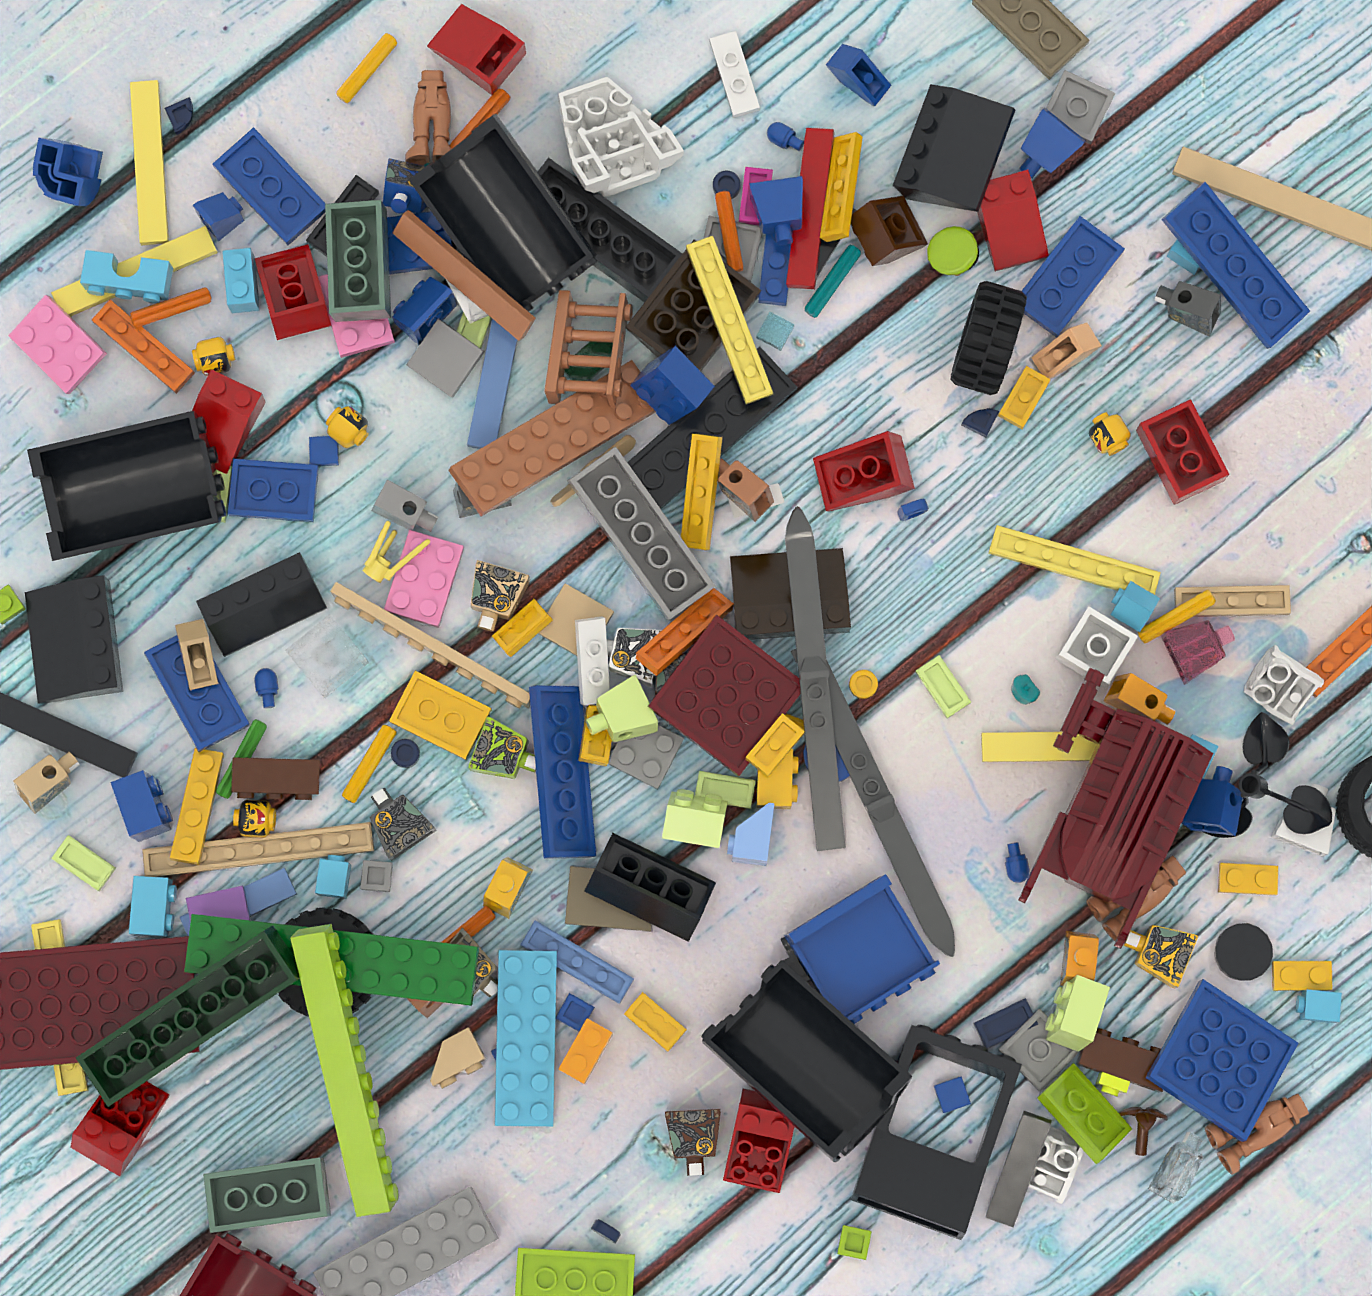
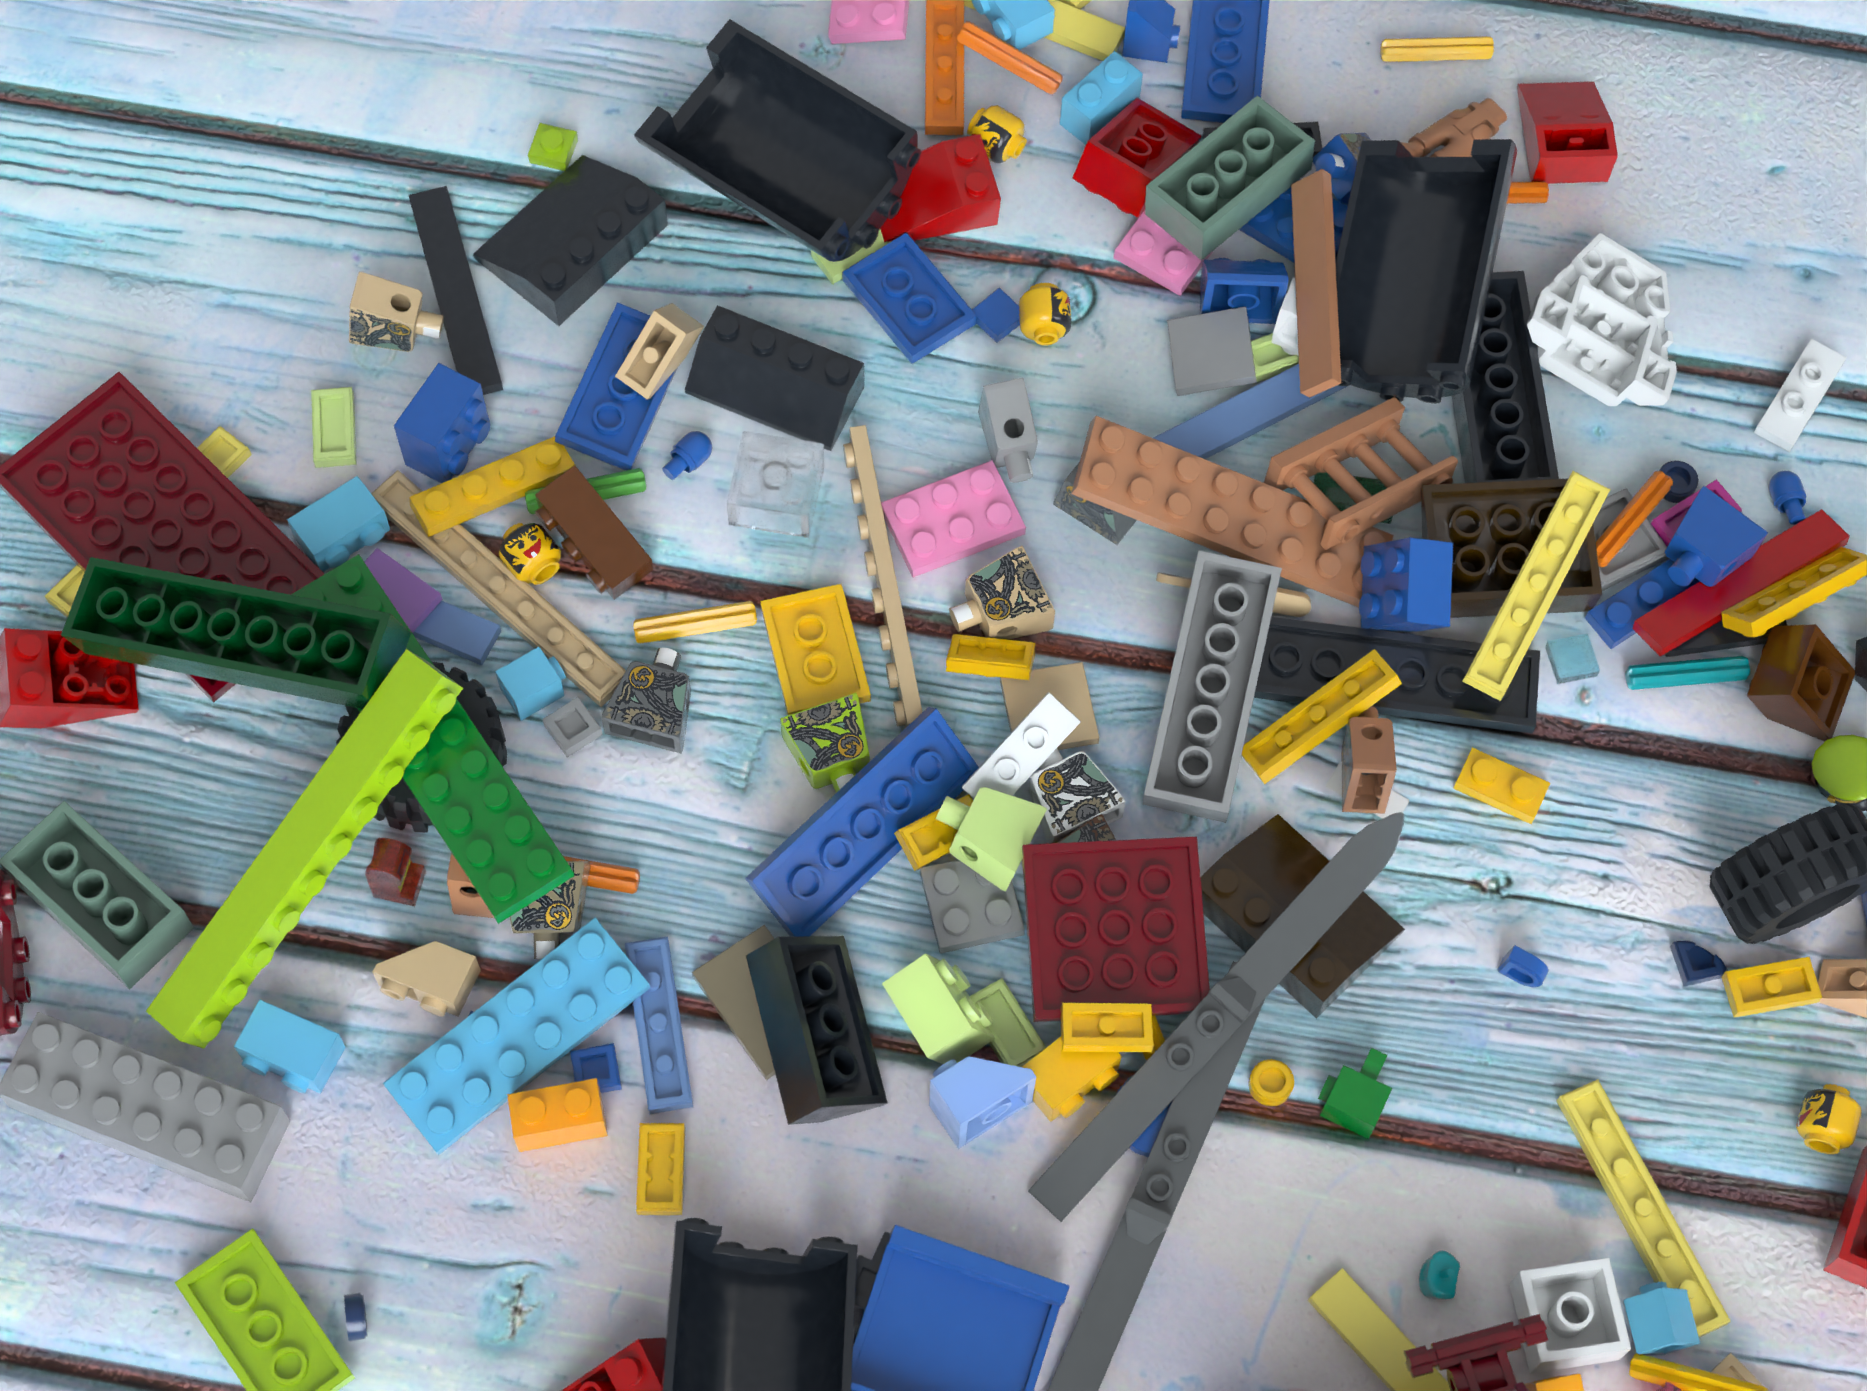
camera: 45 degrees right, 15 degrees down
(378, 566) = (923, 458): light yellow plant -> none
(385, 1032) = (393, 873): none -> clear red leg
(405, 753) = (740, 651): dark blue tile -> none
(435, 1158) = (289, 1048): none -> medium azure brick
(506, 886) = (679, 870): yellow torso -> none
(683, 631) = (1132, 818): orange plate -> none
(693, 1136) = (557, 1326): torso -> none
(810, 430) = (1501, 785): none -> yellow plate
(864, 471) = (1514, 878): red slope -> none
(908, 651) = (1356, 1097): none -> green brick
(943, 686) = (1353, 1177): yellowish green tile -> none

